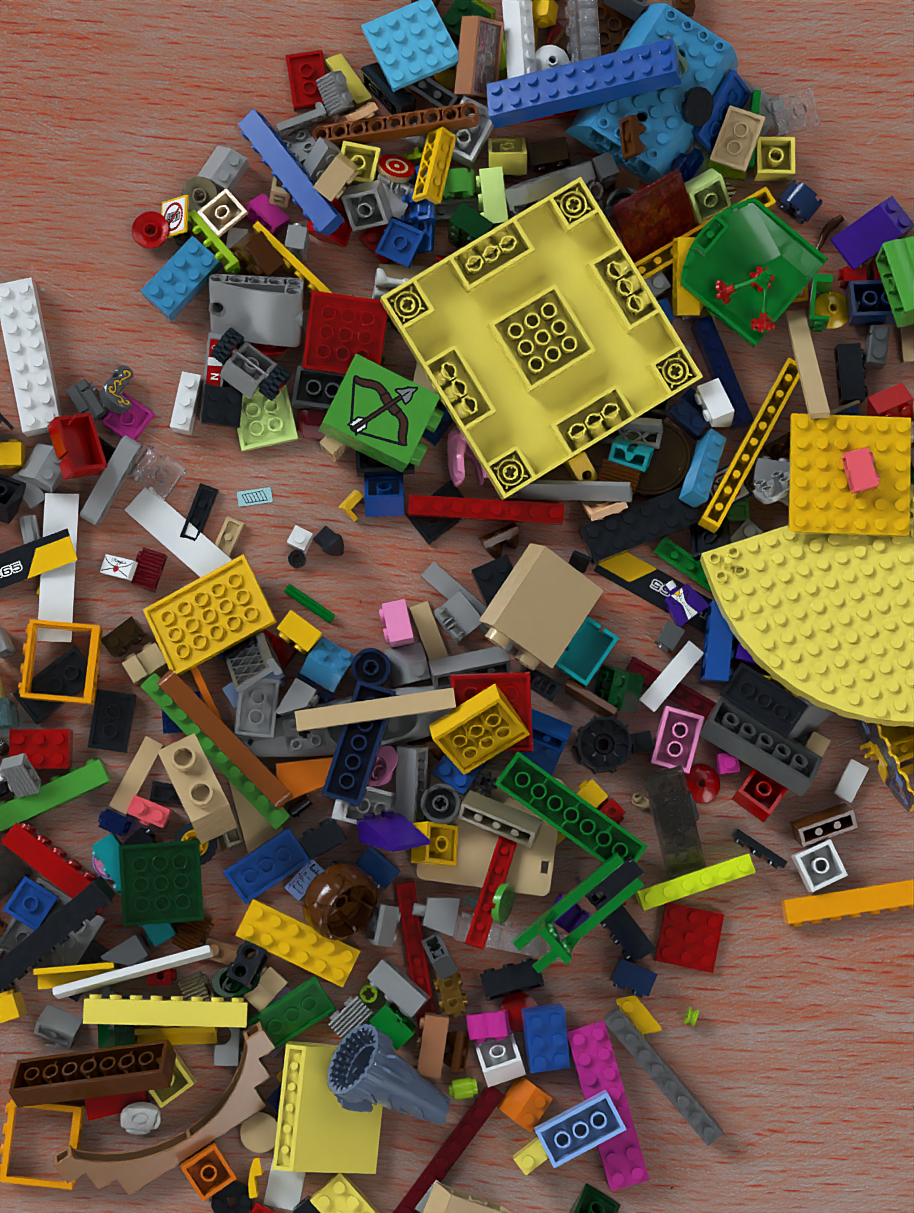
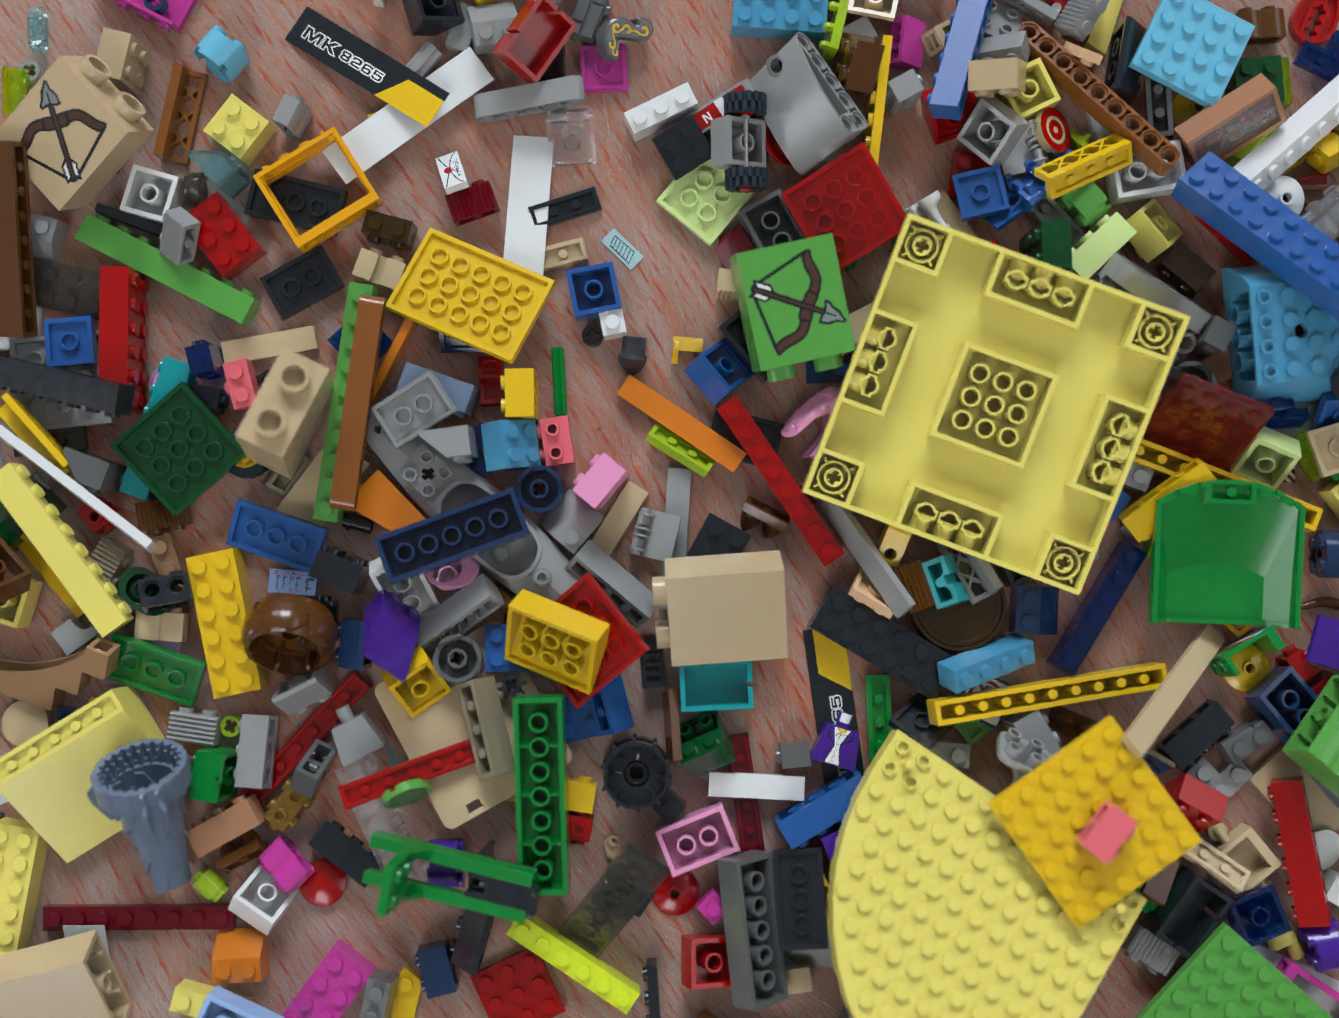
camera: 55 degrees right, 5 degrees up
(264, 654) = (469, 379): dark grey fence -> none
(269, 534) = (593, 290): none -> blue brick
(347, 634) = (556, 441): none -> coral brick
(375, 709) = (495, 526): tan tile -> none
(399, 545) = (681, 423): none -> orange tile
(415, 558) = (679, 450): none -> lime plate
(545, 1038) = (314, 929): blue brick -> none
(579, 561) = (800, 610): black slope -> none
(629, 131) = (1275, 331): reddish brown tile -> none
(715, 403) = (1061, 625): white slope -> none
(761, 280) = (1224, 577): red plant -> none
(894, 374) = (1225, 780): none -> light grey plate

